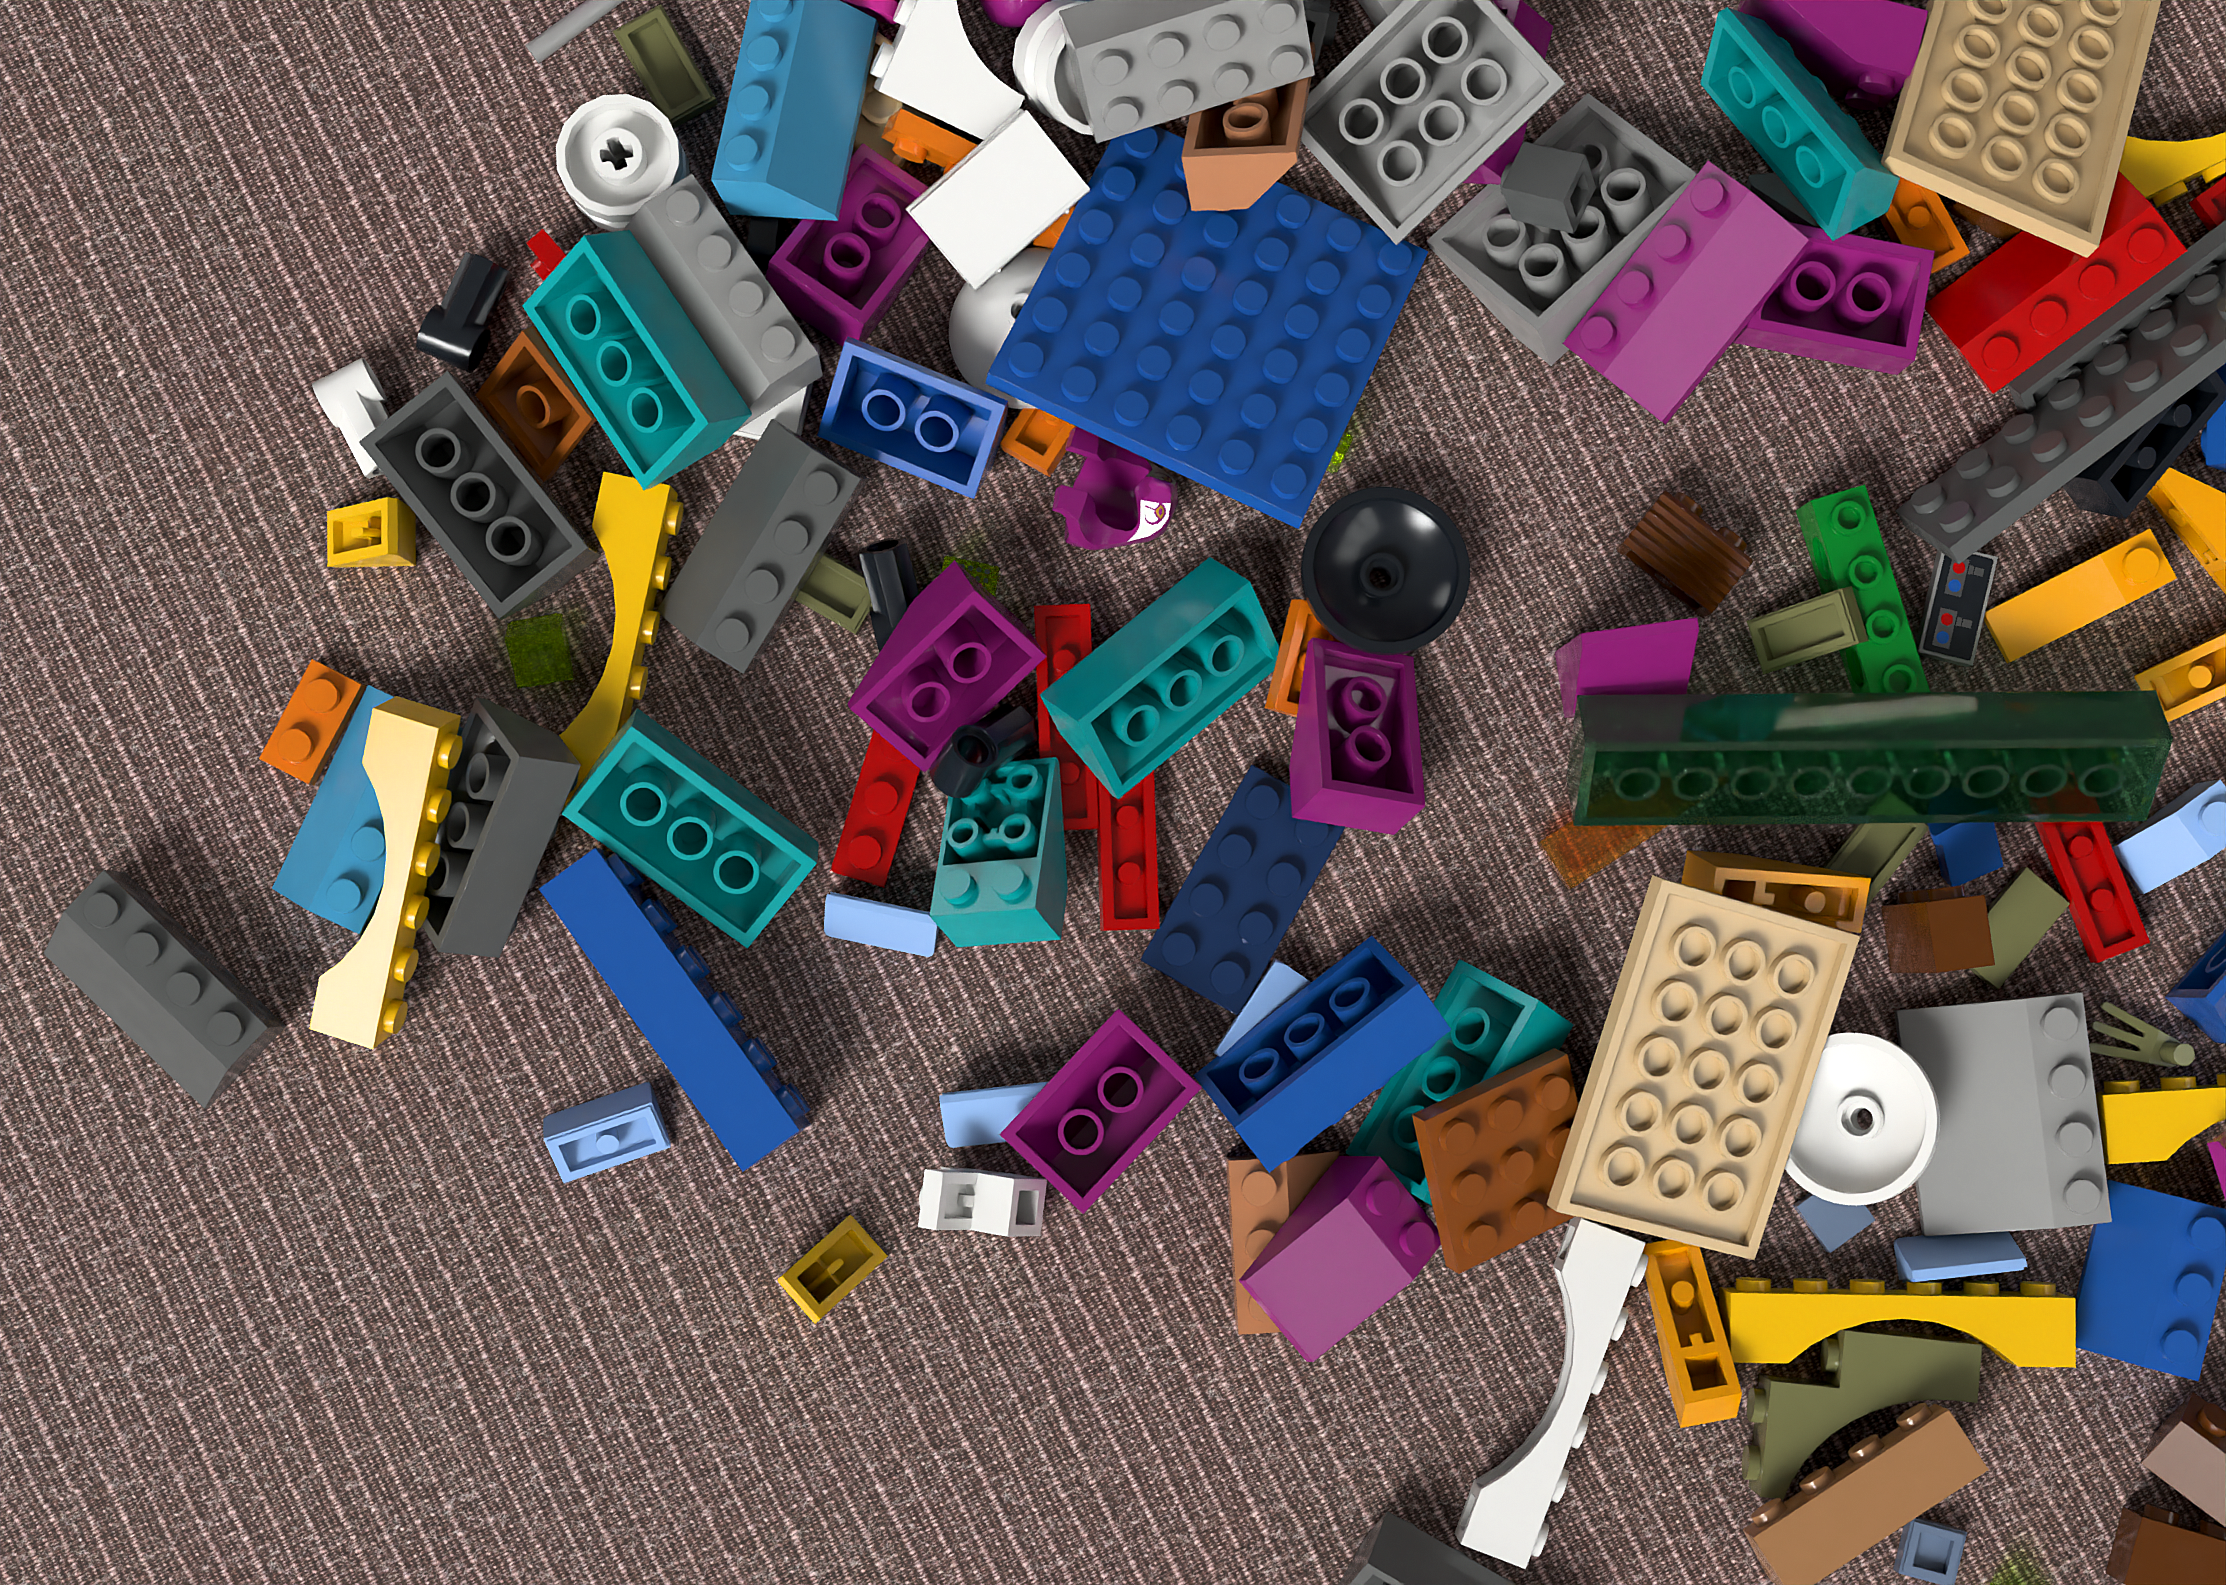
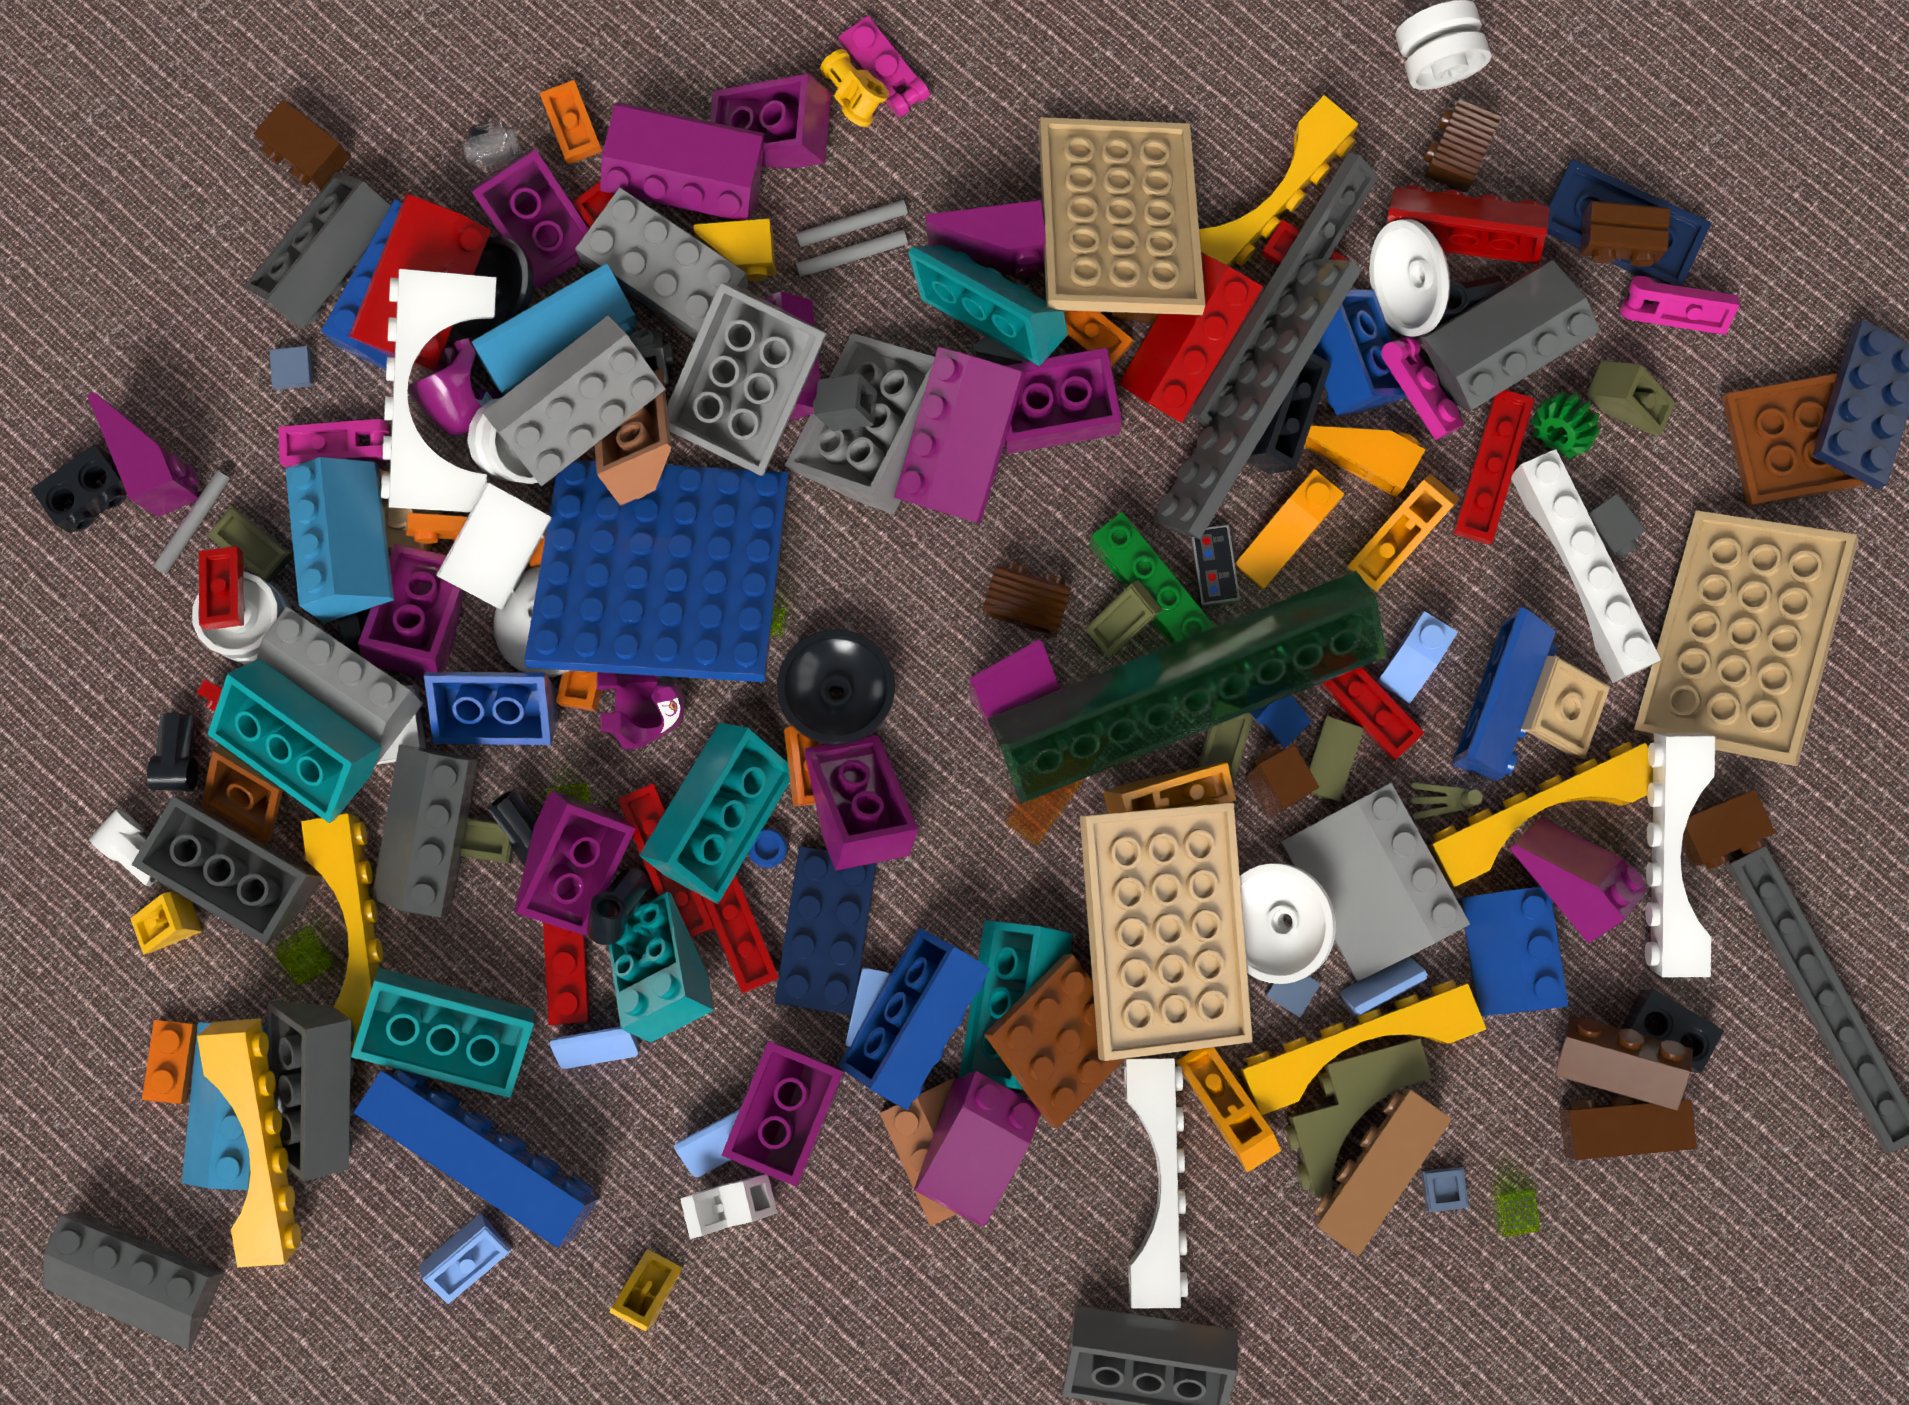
camera: 15 degrees left, 5 degrees down
(613, 114) = (221, 588): none -> red plate
(1209, 752) = (769, 849): none -> blue tile

